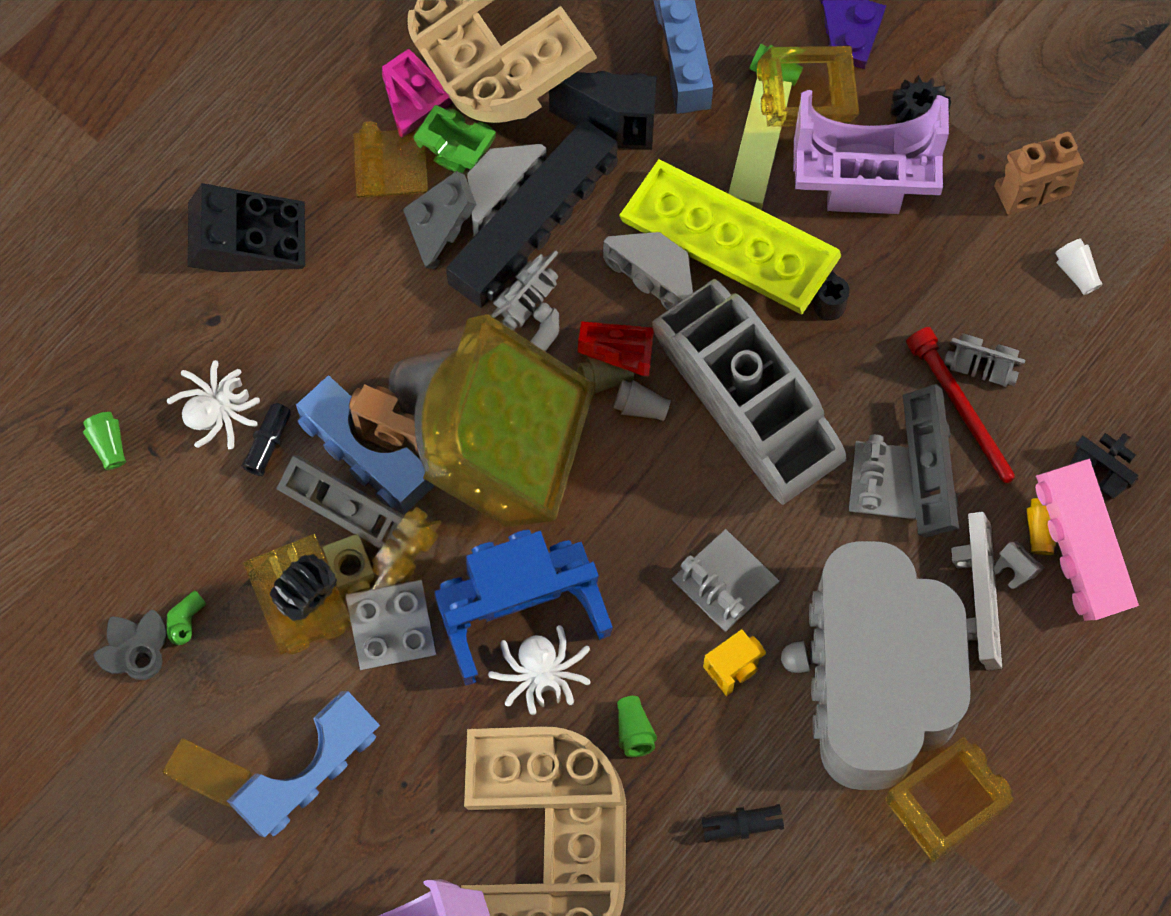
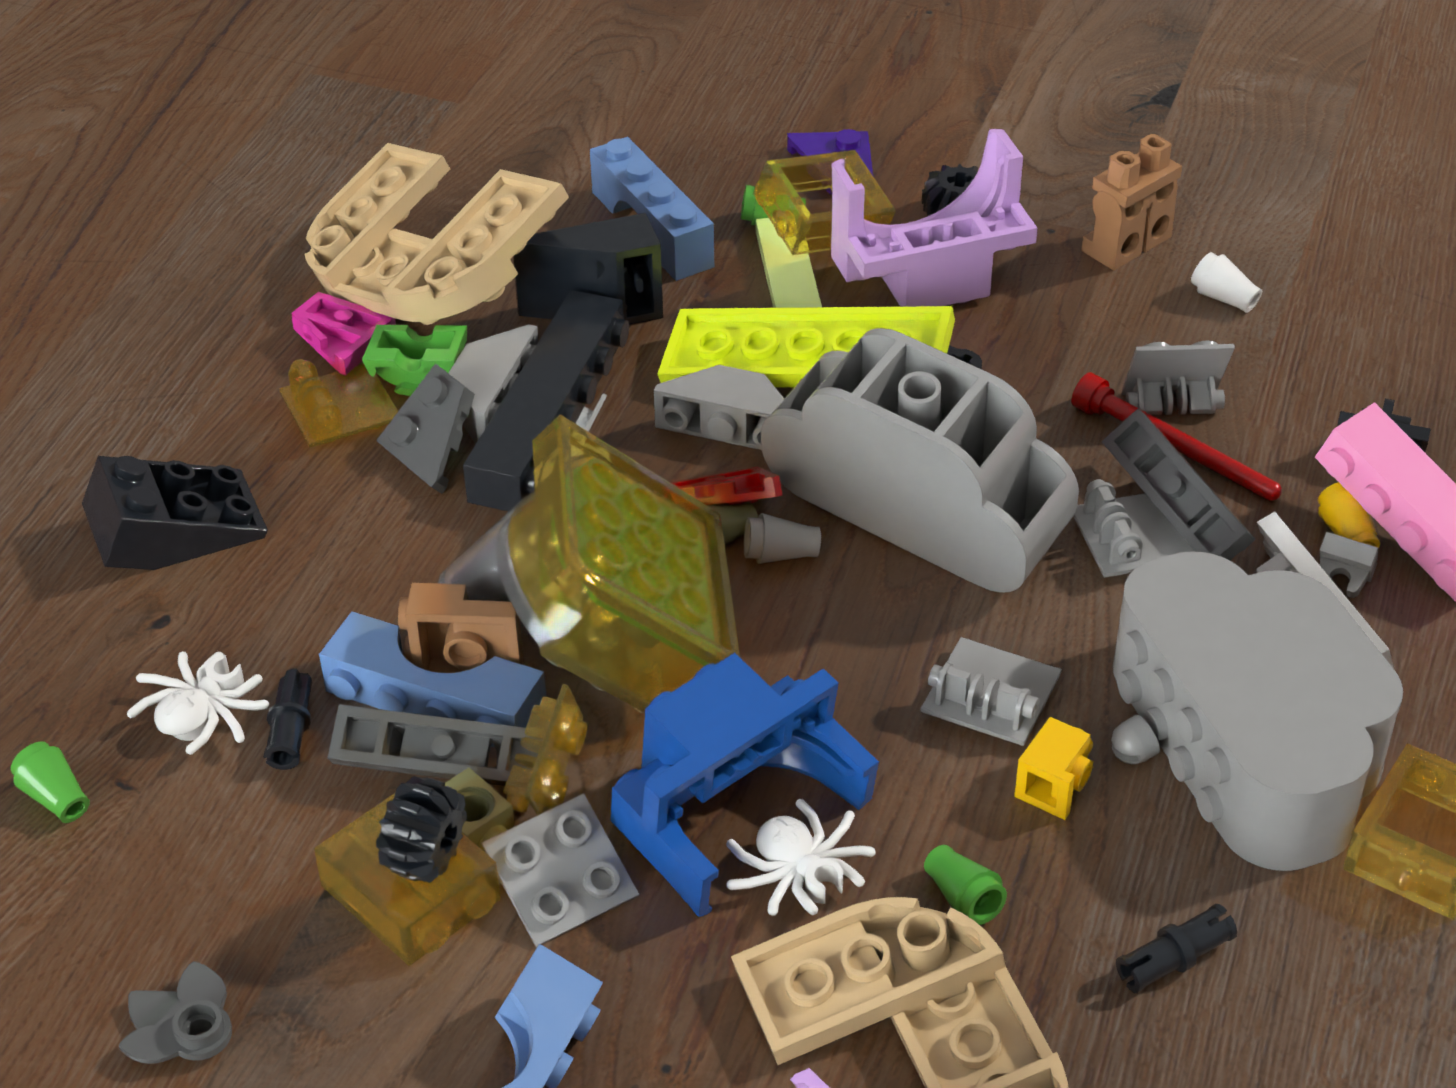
camera: 20 degrees left, 25 degrees down
(180, 618) = (239, 959): bright green arm -> none

